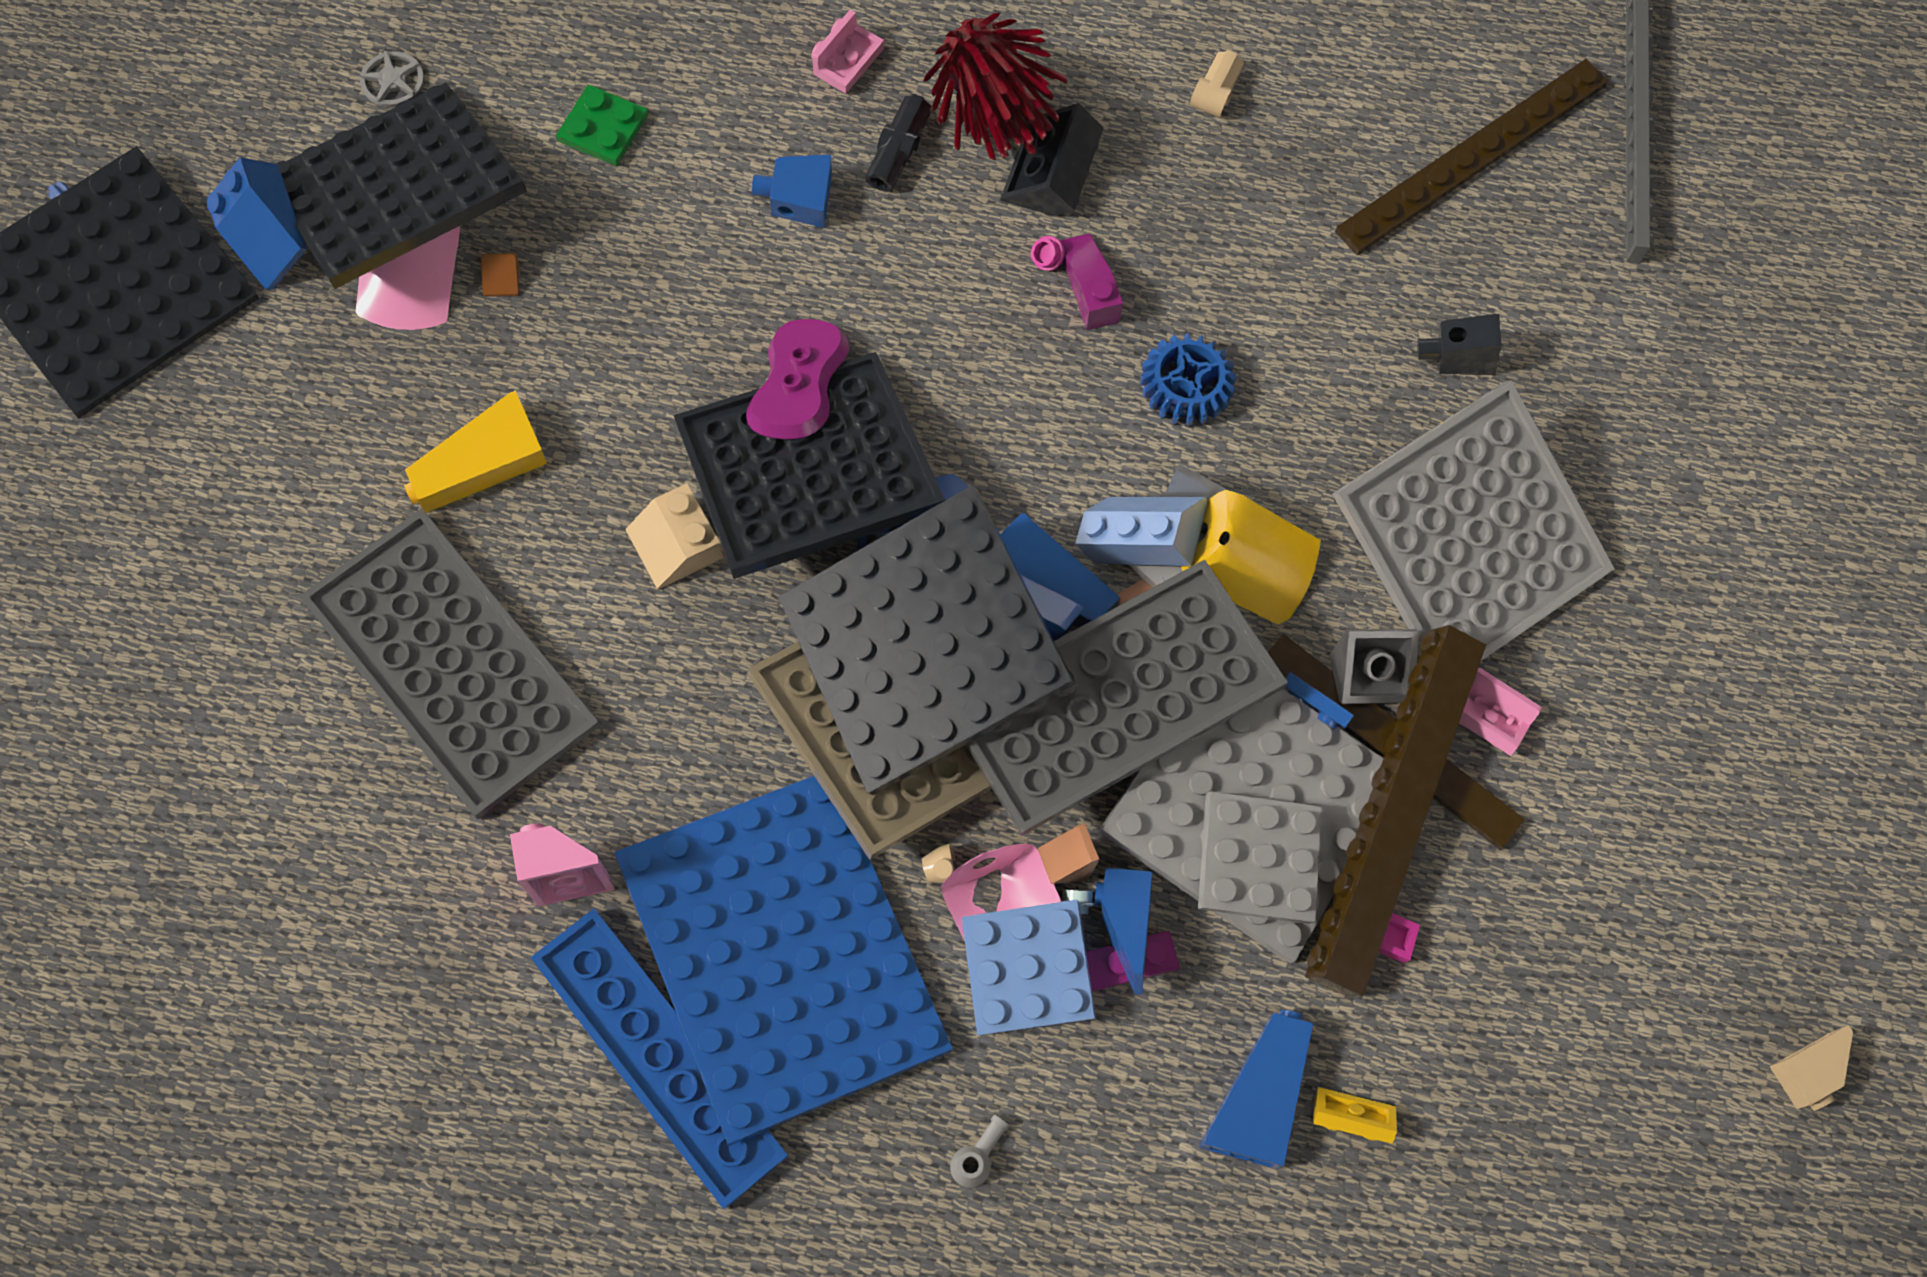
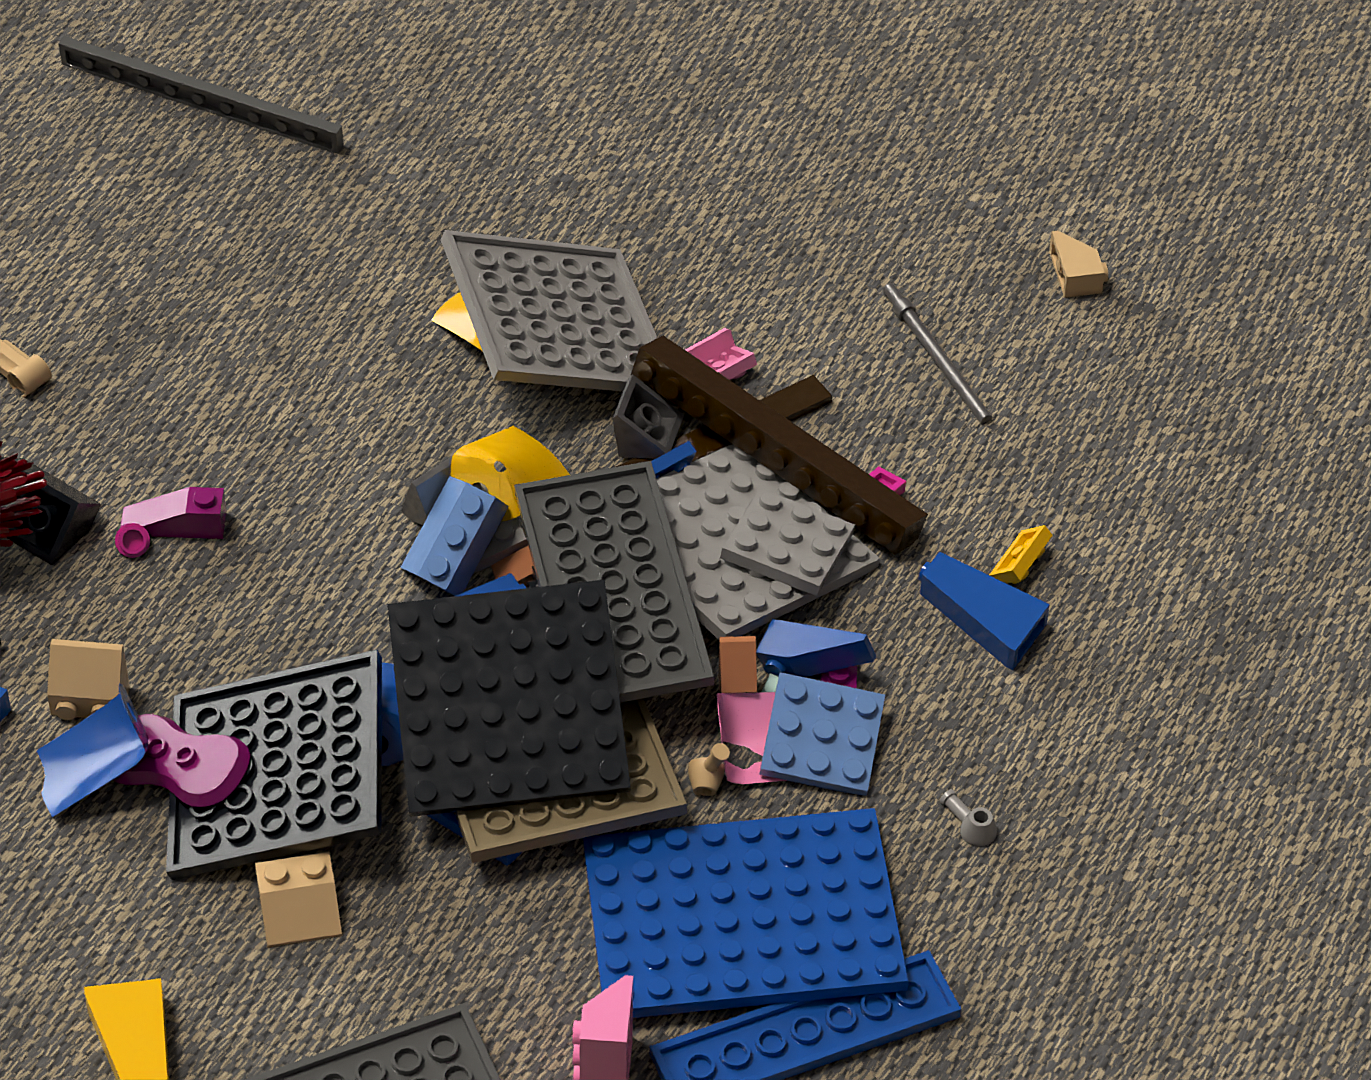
camera: 70 degrees left, 20 degrees down
(779, 308) = (92, 753): none -> blue piece
(855, 273) = (84, 676): none -> tan slope
(1208, 366) = (333, 480): blue gear -> none
(1465, 346) = (376, 271): black torso -> none
(1470, 157) = (185, 220): dark brown plate -> none
(1664, 893) = (906, 310): none -> flat silver bar

